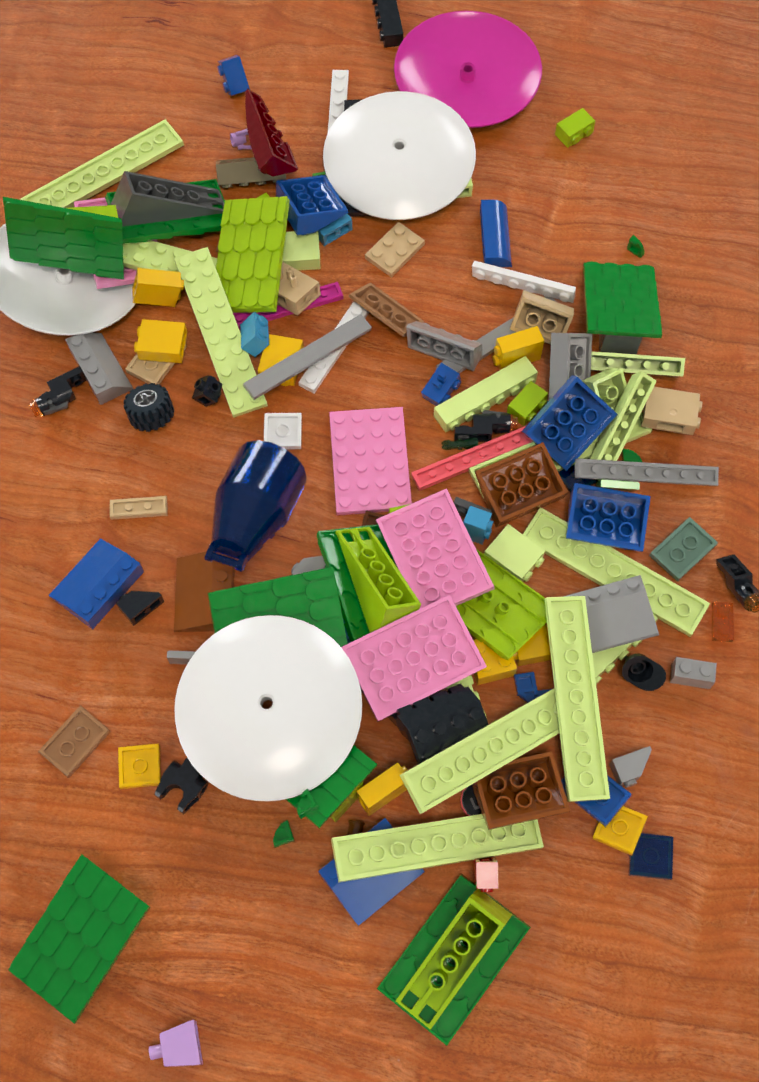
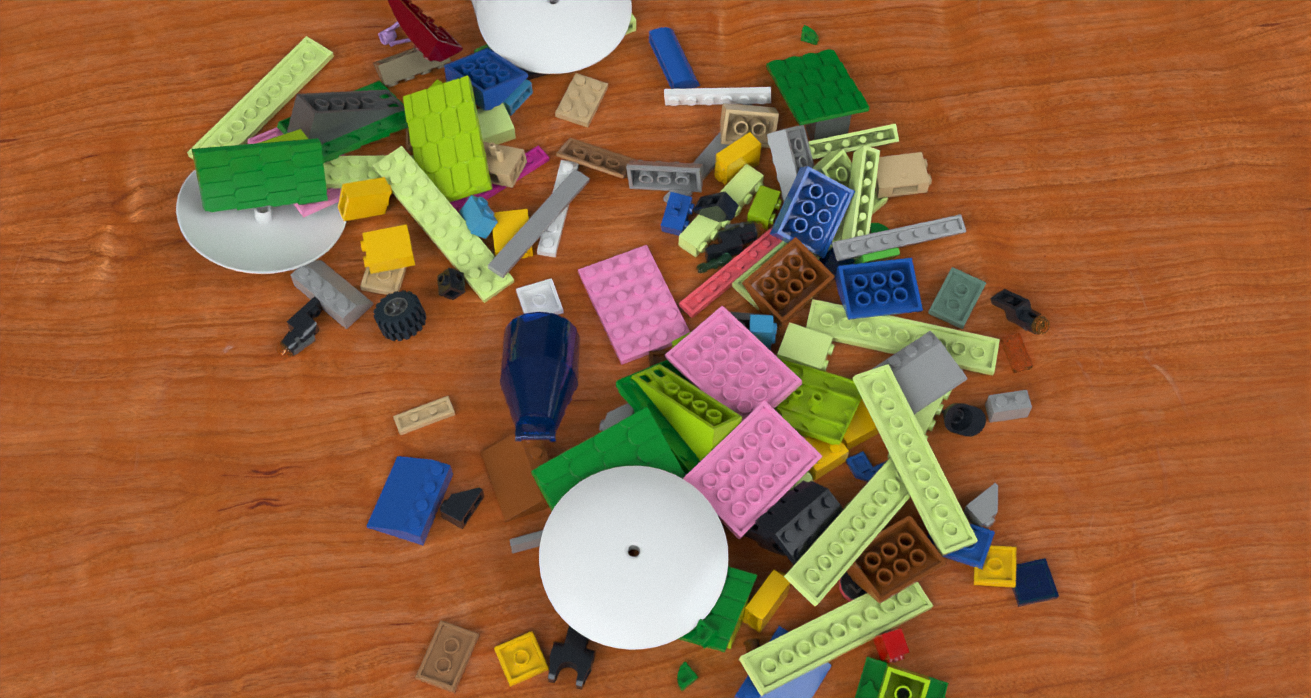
camera: 20 degrees left, 5 degrees down
(479, 390) = (717, 207): none -> black slope

